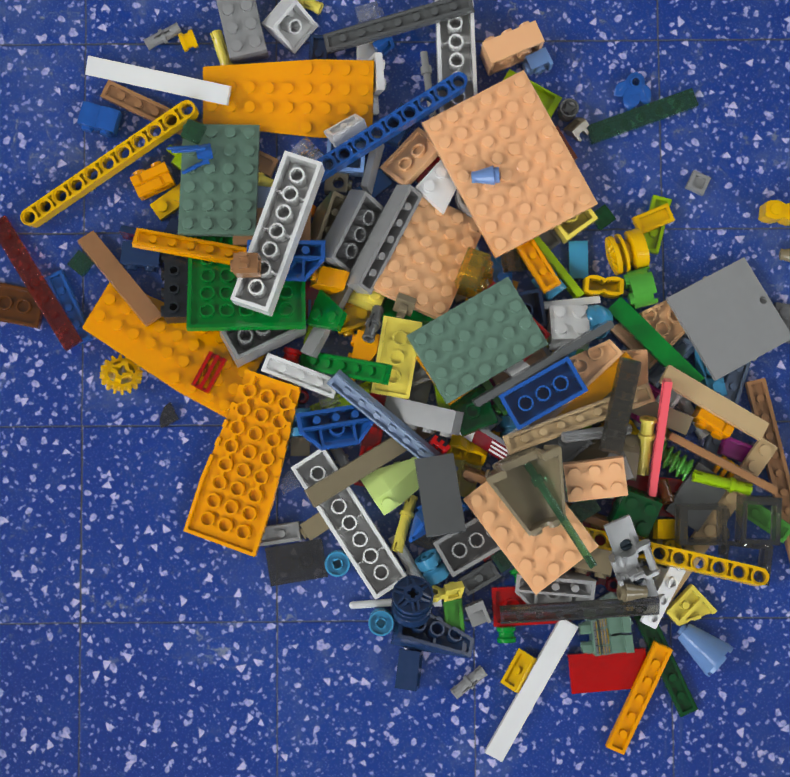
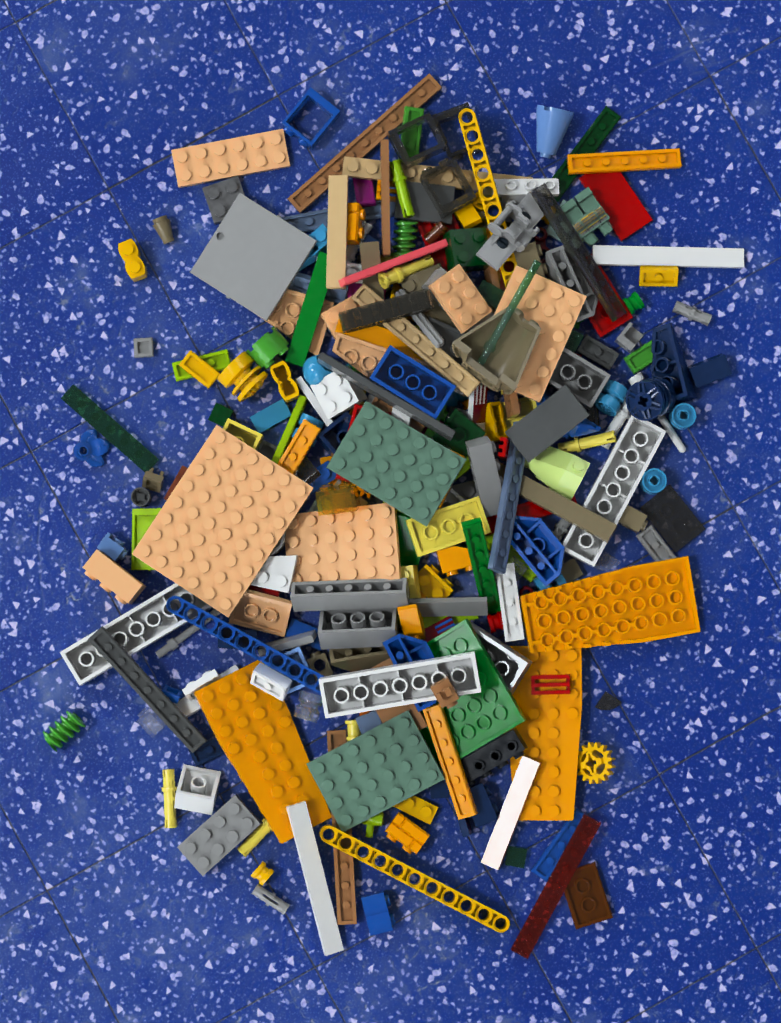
camera: 115 degrees left, 0 degrees up
(193, 131) = (345, 817): clear green tile -> none
(203, 152) = (359, 797): blue plant -> none
(326, 313) = (442, 609): green wing -> none
(373, 324) = (431, 562): dark grey pin -> none
(404, 305) = (400, 543): dark tan tile -> none
(449, 592) = (624, 371): light yellow plate -> none
(486, 175) = (247, 533): medium blue cone -> none
(631, 592) = (539, 217): dark tan cone -> none
(689, 606) = (522, 159): light yellow wing -> none

